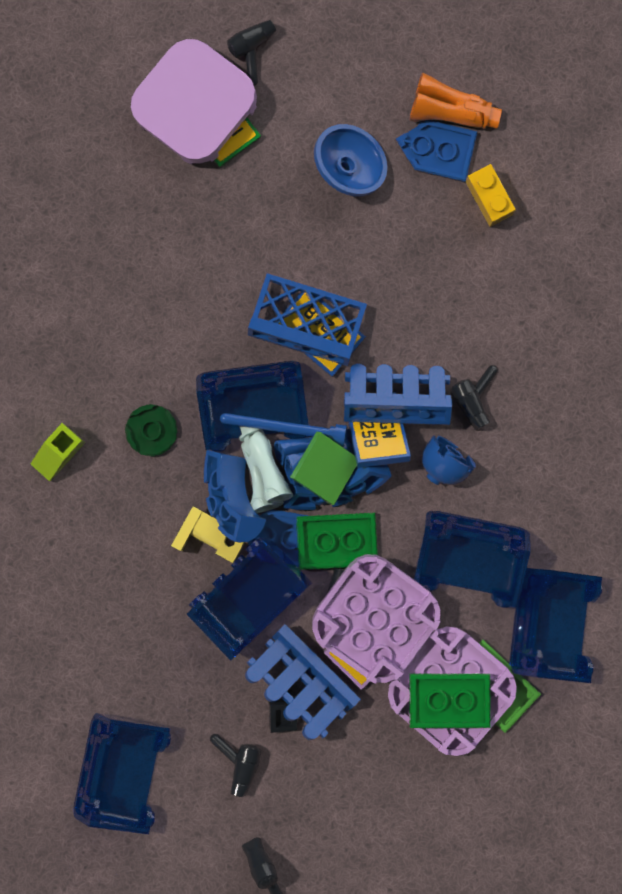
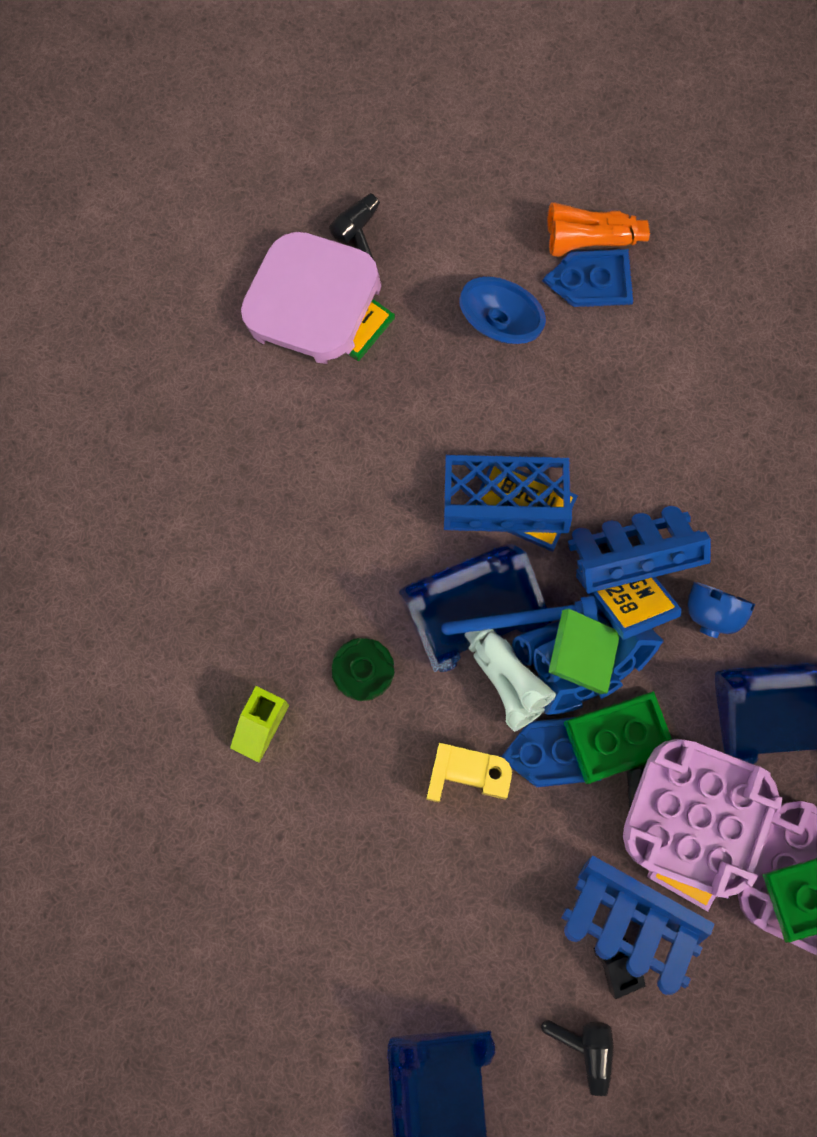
camera: 15 degrees left, 10 degrees down
(228, 497) = (477, 721): blue brick -> none
(248, 597) = (539, 835): clear blue windscreen -> none
(468, 397) = (721, 534): black piece -> none
(490, 195) = (666, 307): yellow brick -> none

